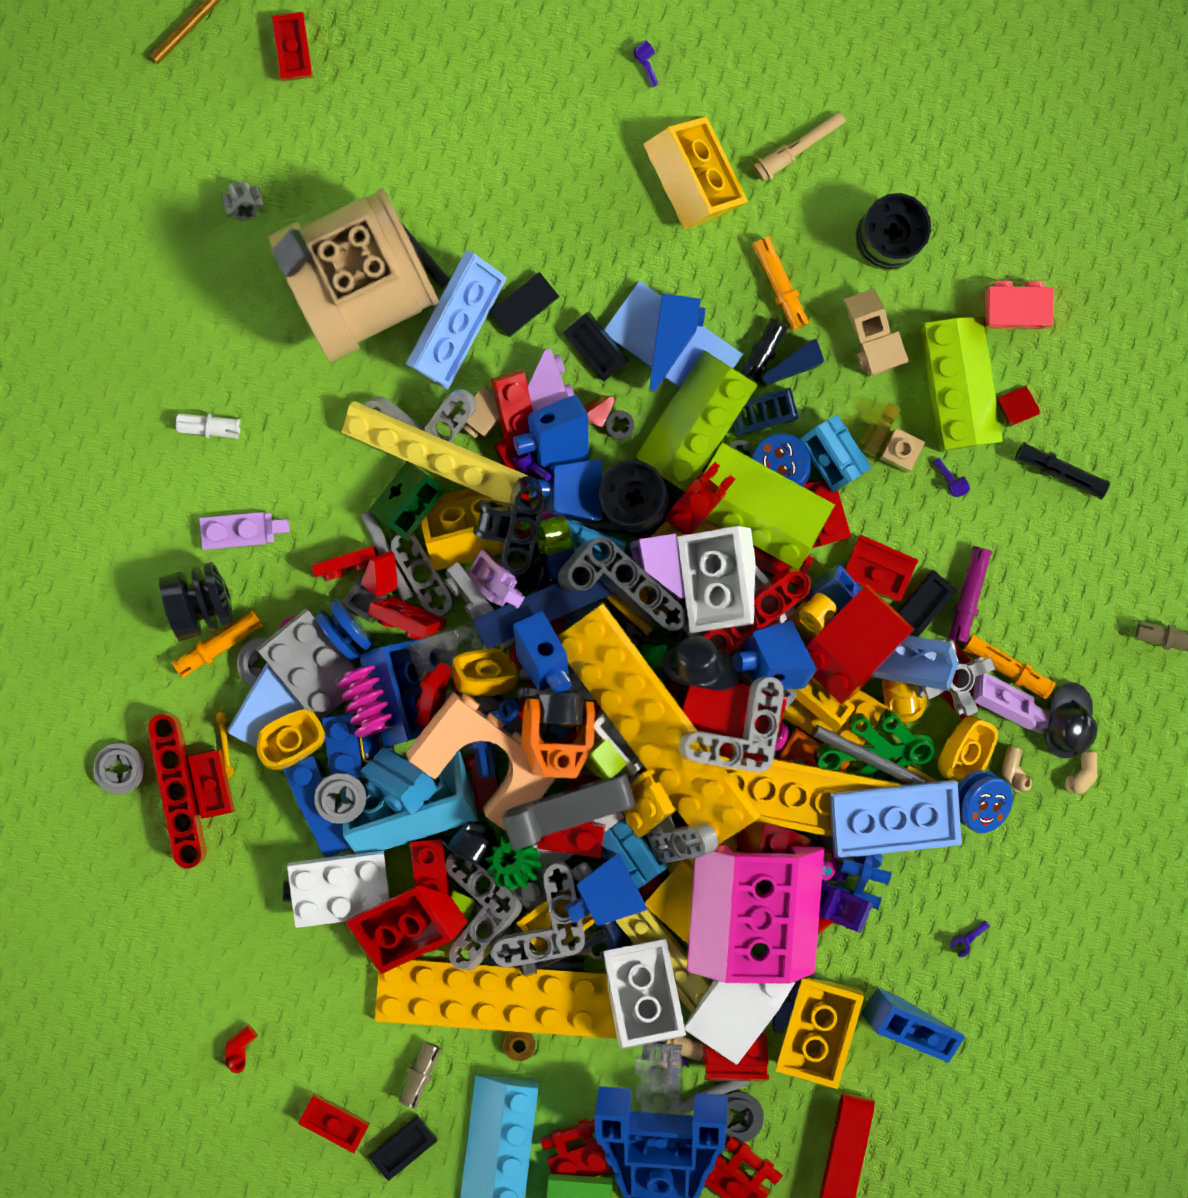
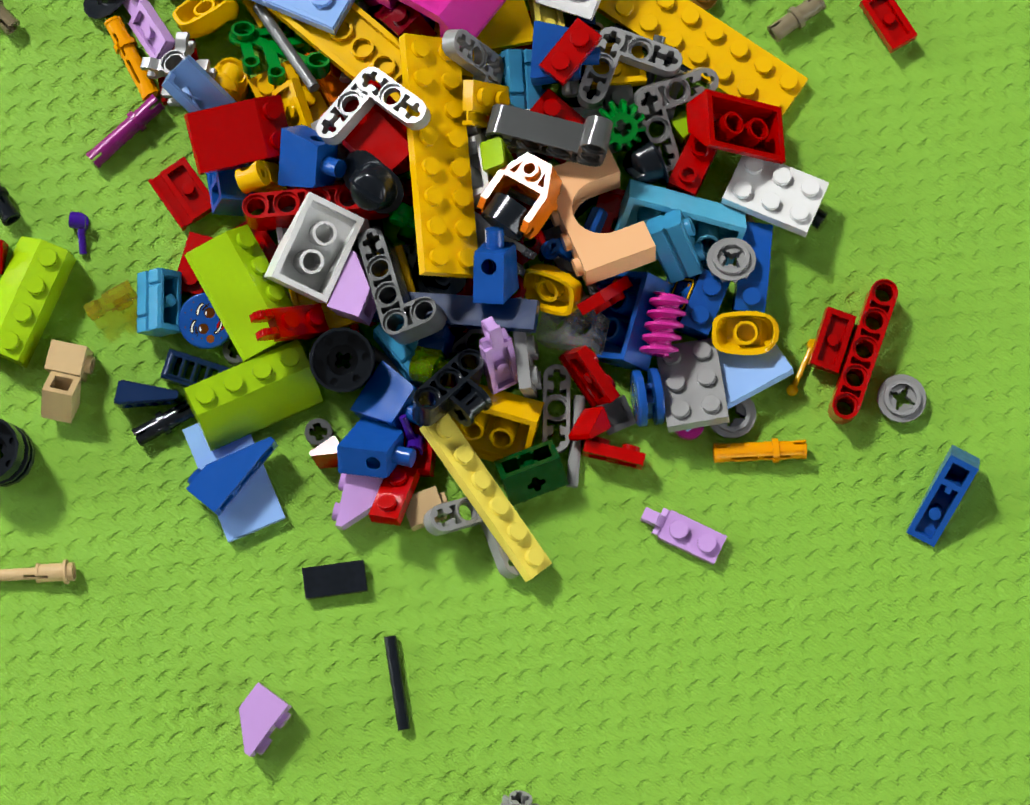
camera: 145 degrees left, 10 degrees down
(31, 702) = (944, 495): none -> blue slope
(199, 600) = (756, 492): black wheel -> none
(208, 425) = (661, 636): white axle -> none
(236, 1049) = (935, 121): red arm -> none
(292, 253) = (498, 710): black tile -> none
(359, 274) = (456, 678): tan cylinder -> none
(456, 320) = (398, 596): light blue tile -> none
(514, 147) = (259, 717): none -> lavender slope
(595, 898) = (570, 51): none -> red plate
(596, 346) = (297, 508): black tile -> none
(642, 54) = (104, 732): dark purple hand -> none
(695, 172) = (125, 602): yellow slope -> none
(780, 283) = (114, 470): light orange pin -> none
(901, 450) = (103, 272): tan brick -> none
(926, 602) = (163, 147): black tile -> none

